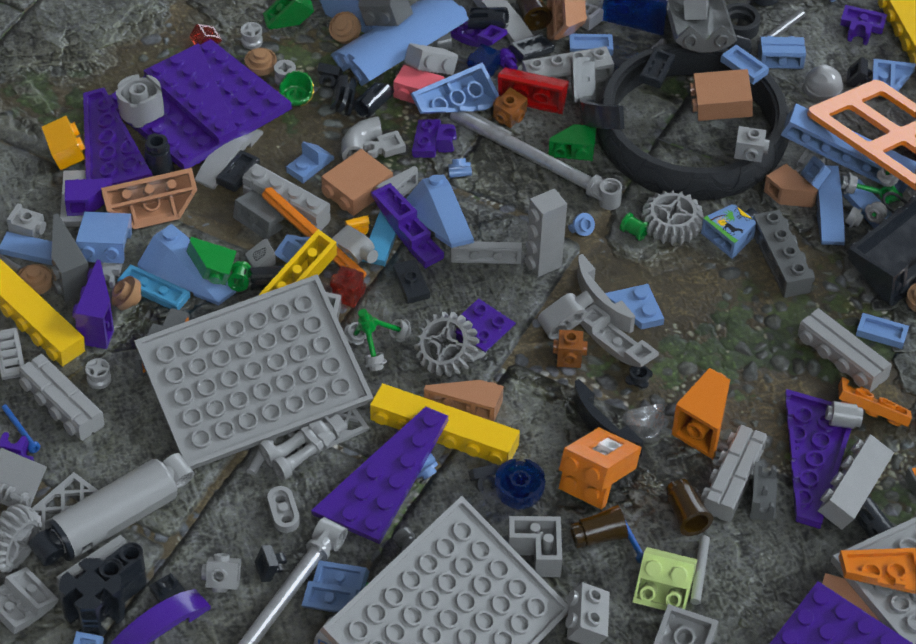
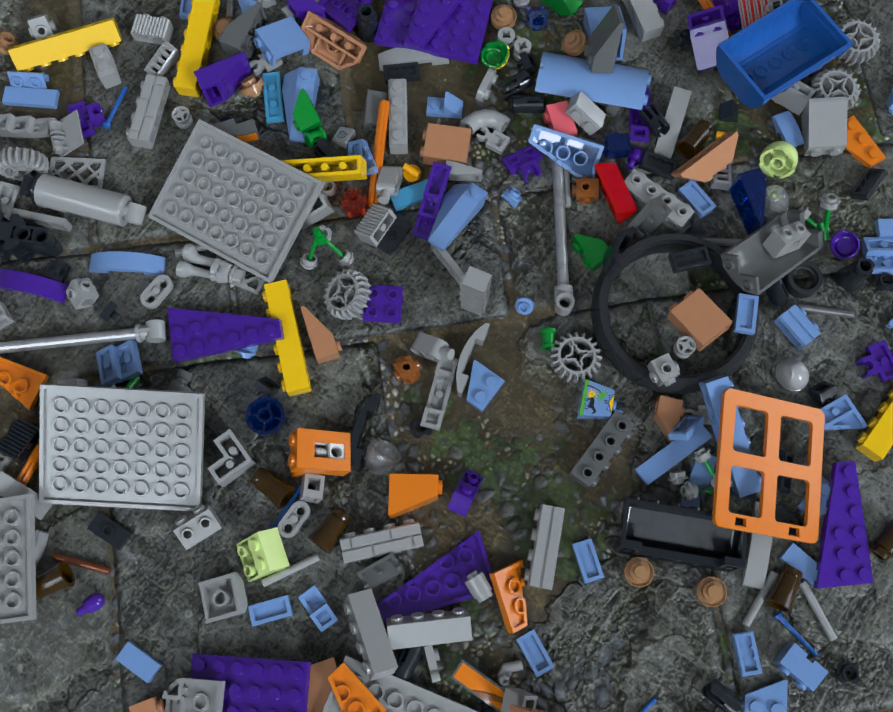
camera: 55 degrees right, 25 degrees up
(218, 519) = (127, 262): none -> medium blue slope
(290, 36) = (536, 17): none -> clear blue brick
(309, 65) = (521, 42): none -> light grey wheel
(321, 116) = (484, 89): none -> light grey plate
(388, 283) = (375, 224): none -> light grey brick
(629, 496) = (309, 495): none -> light grey brick
(649, 535) = (292, 518): none -> light grey plate
(731, 610) = (270, 610): none -> medium blue tile
(738, 117) = (687, 344): none -> light grey wheel
(743, 377) = (465, 493): none -> dark purple slope
(765, 569) = (317, 608): none -> medium blue slope
(825, 525) = (370, 634): none -> light grey brick
(889, 502) = (432, 657): none -> light grey plate

